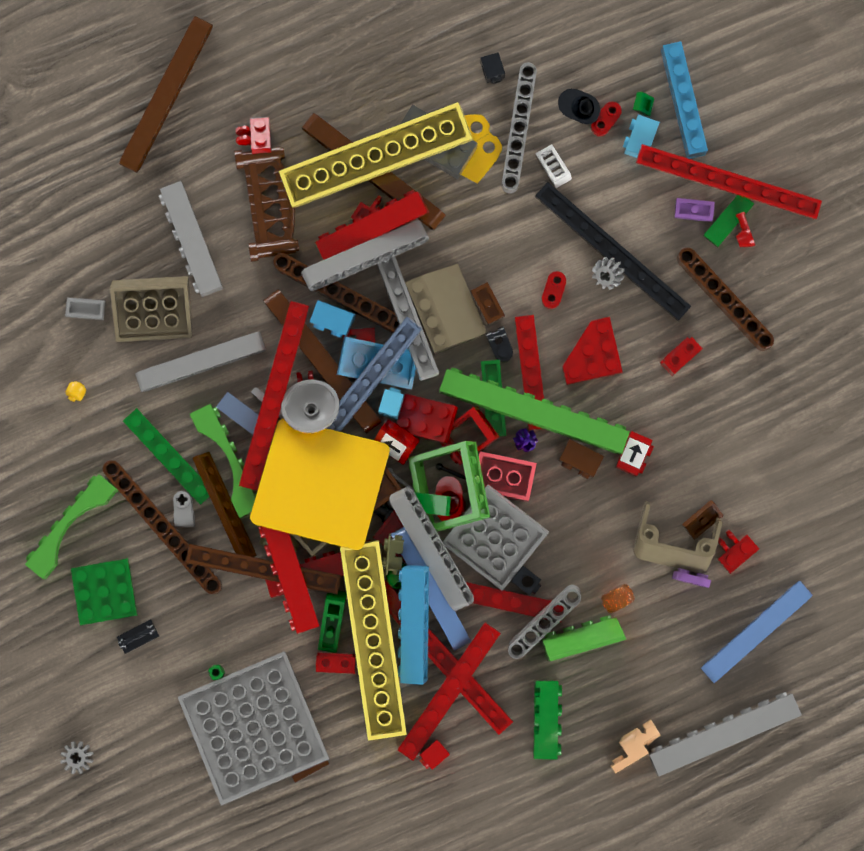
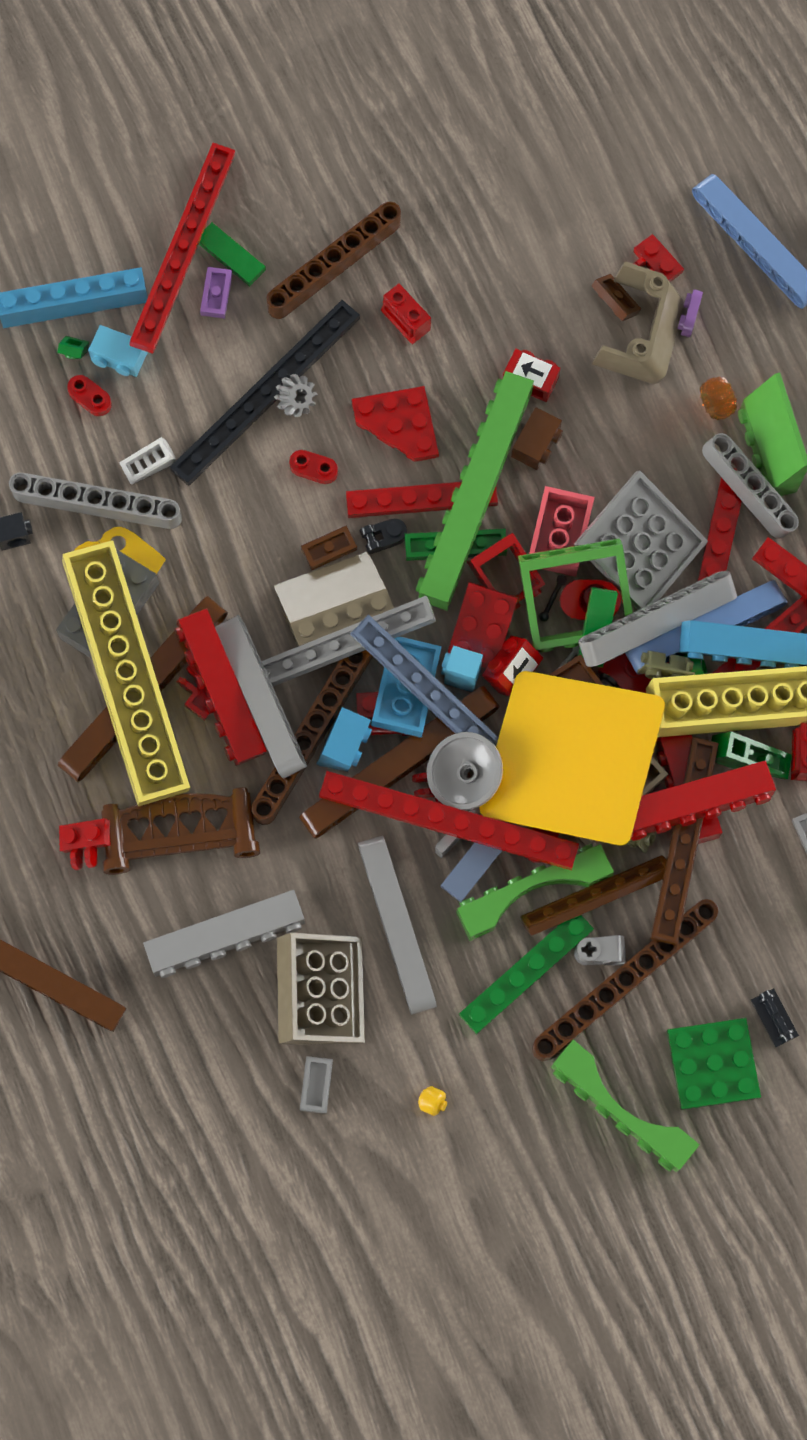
camera: 90 degrees left, 10 degrees down
(517, 580) = (701, 500): black brick -> none
(525, 440) = (511, 505): dark purple gear -> none
(579, 106) = (72, 422): black piece -> none
(745, 237) = (254, 232): red bar -> none

